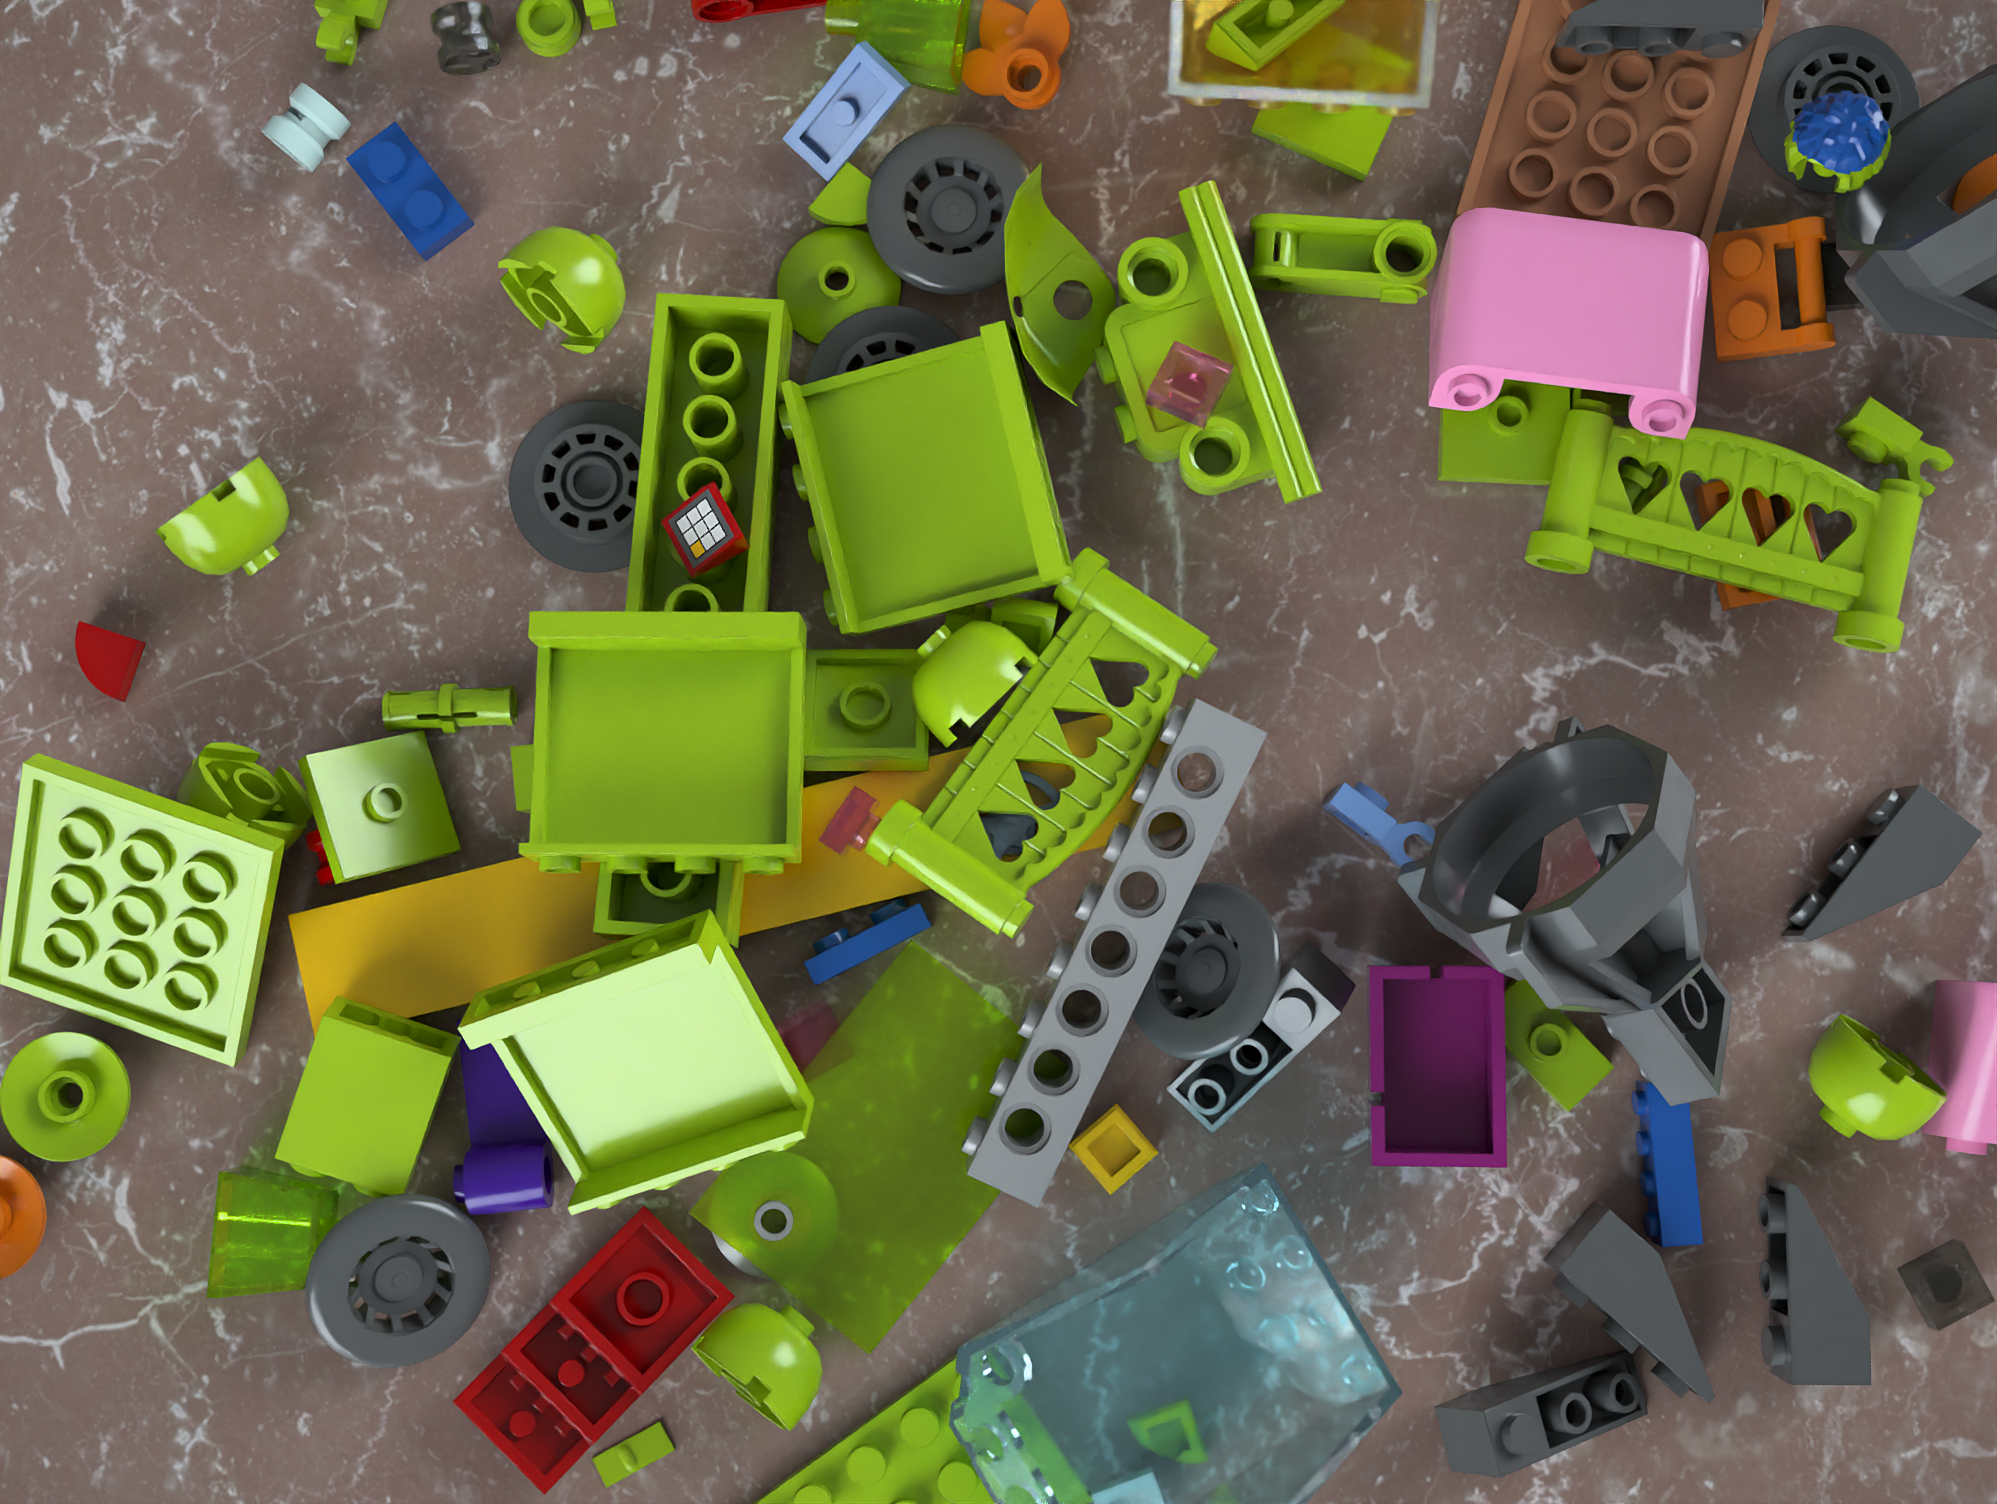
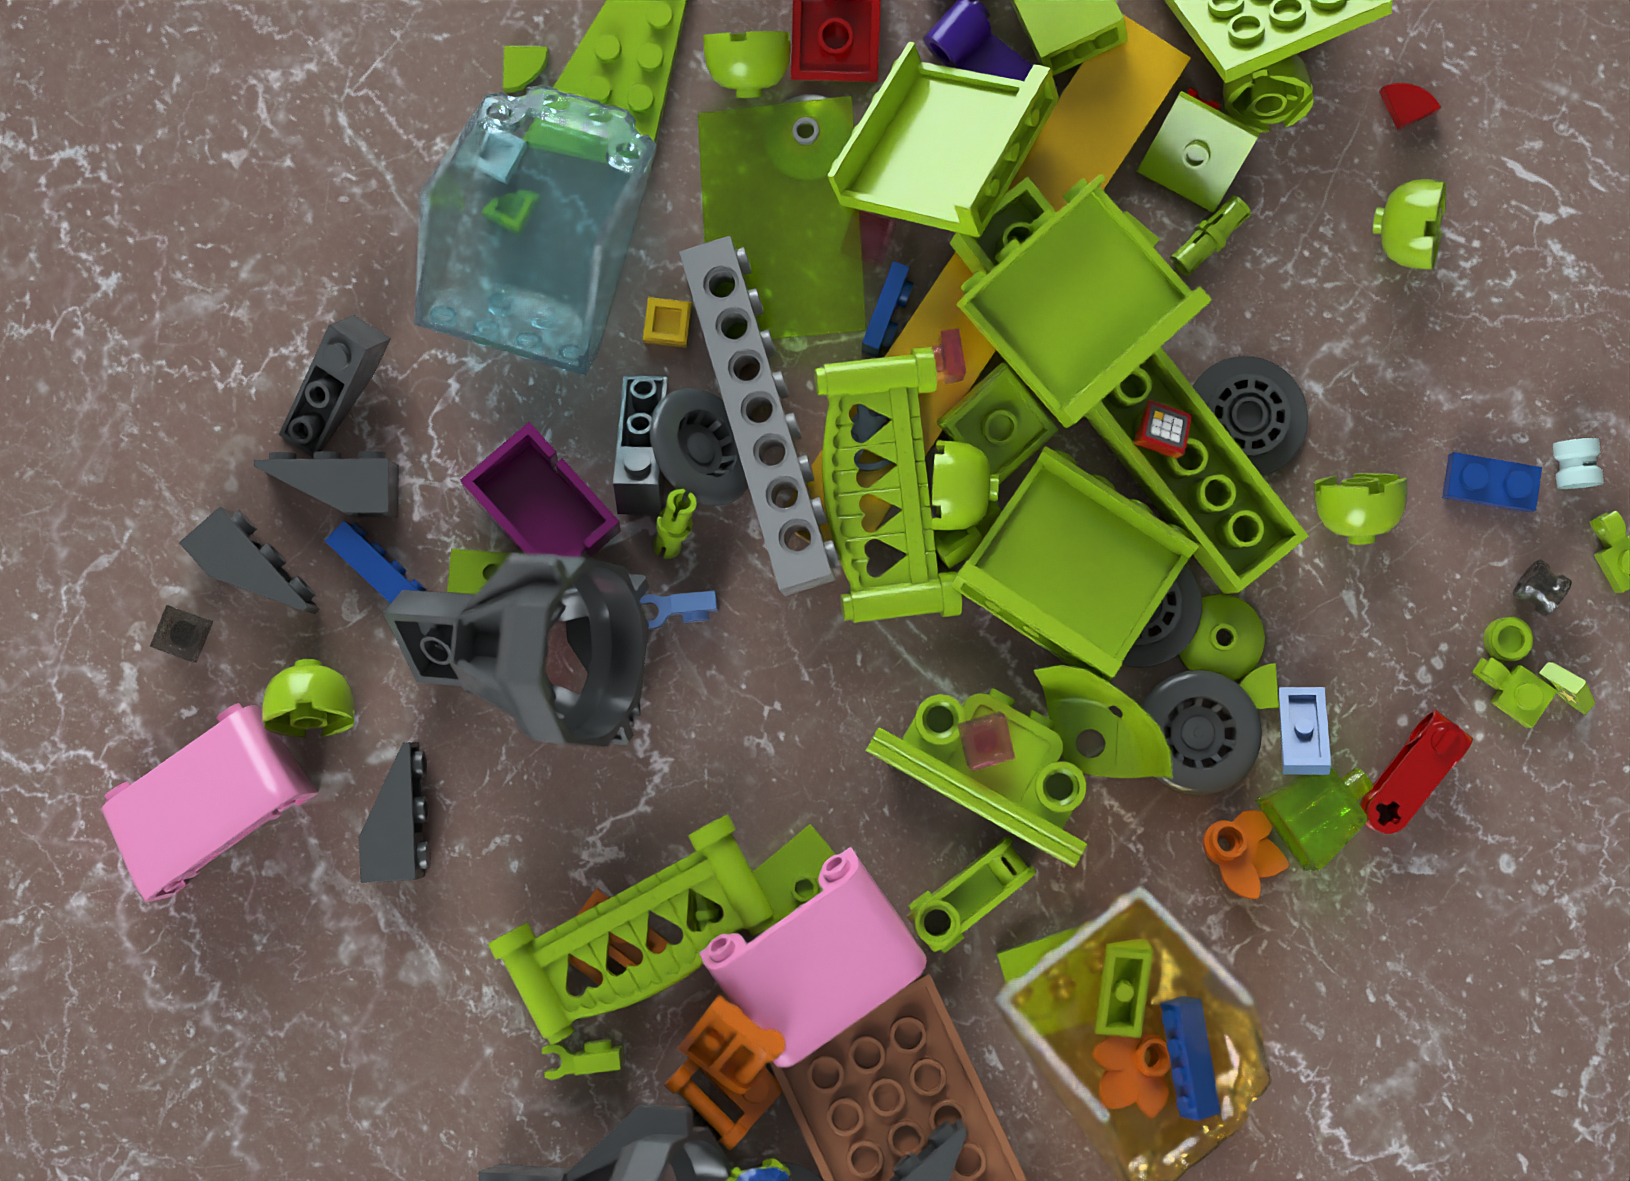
camera: 135 degrees right, 0 degrees up
(1305, 914) = (674, 523): none -> lime pin
(1736, 328) = (720, 1035): none -> orange plate

